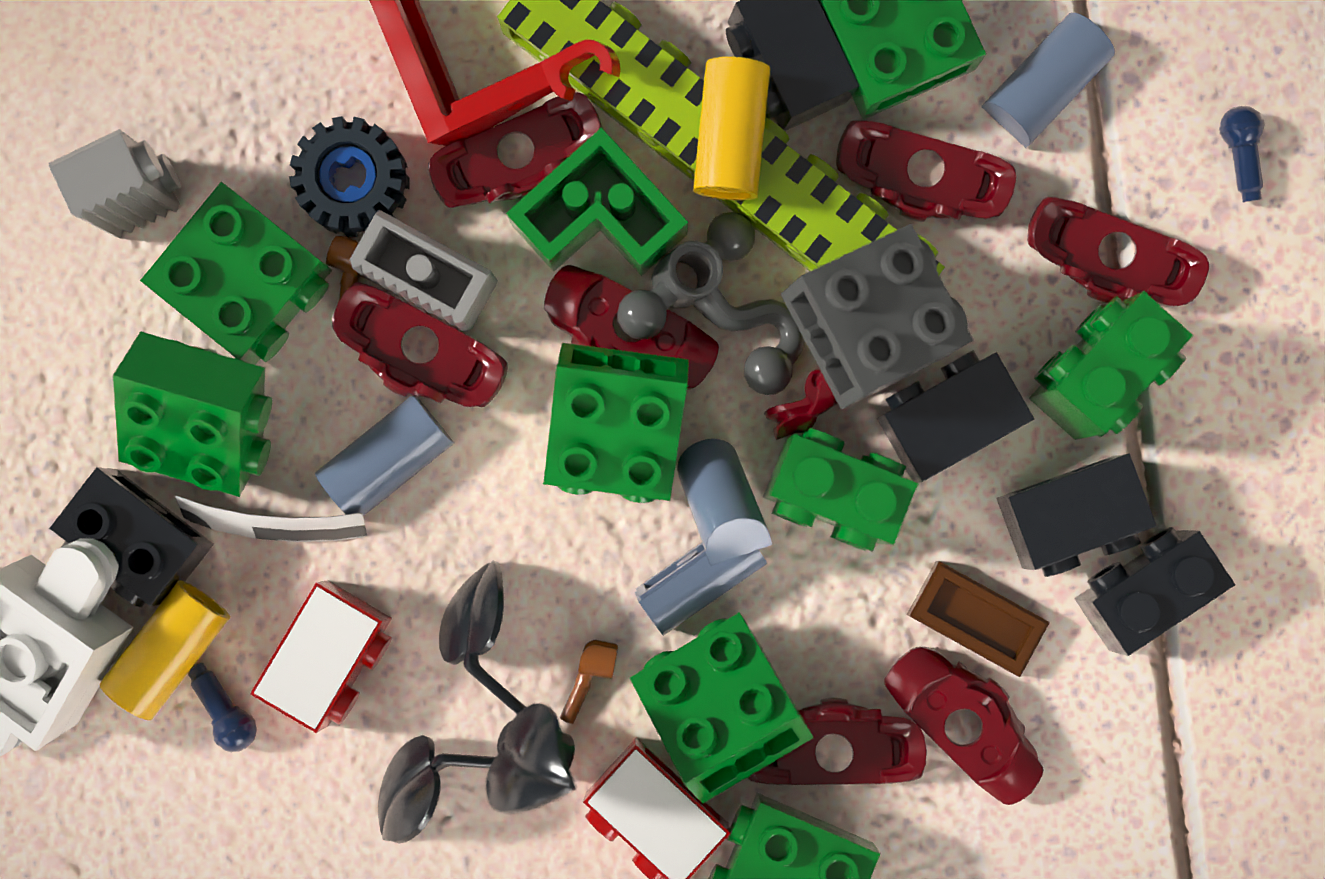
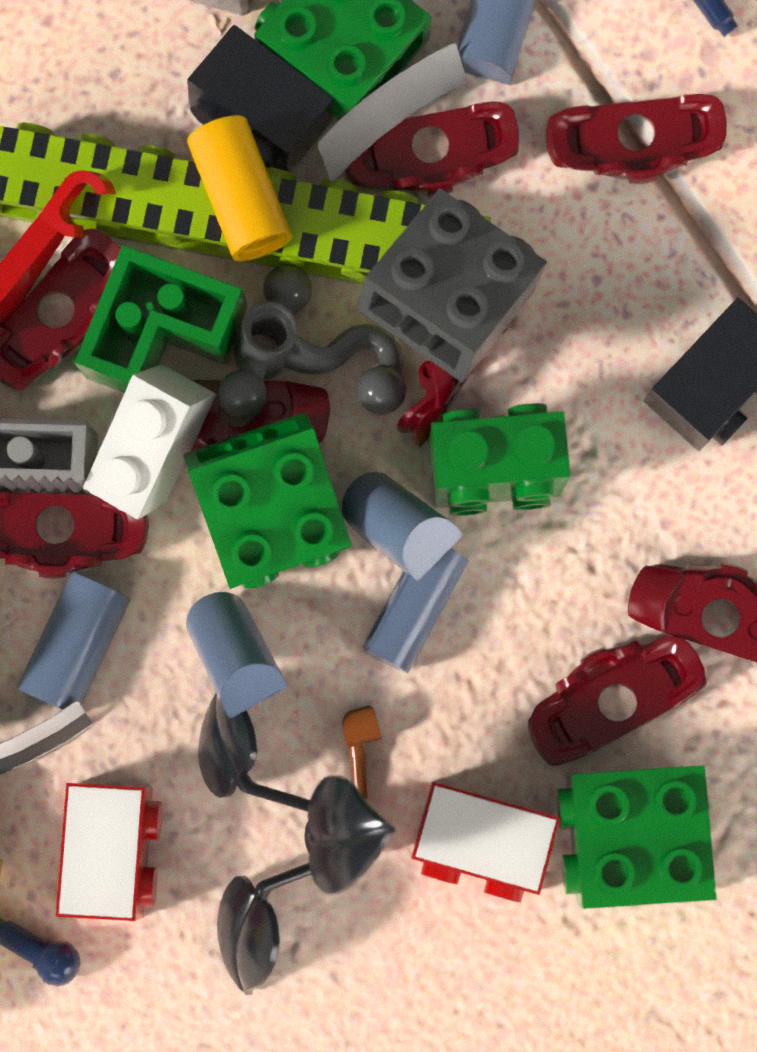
camera: 25 degrees left, 5 degrees down
(518, 541) = (233, 652): none -> sand blue brick
(537, 315) = (148, 440): none -> white brick
(720, 707) = (493, 707): green brick -> none
(906, 116) = (389, 106): none -> light grey sticker
(954, 417) = (568, 344): black brick -> none
(978, 618) = (683, 516): reddish brown tile -> none
(1119, 356) = (685, 216): green brick -> none

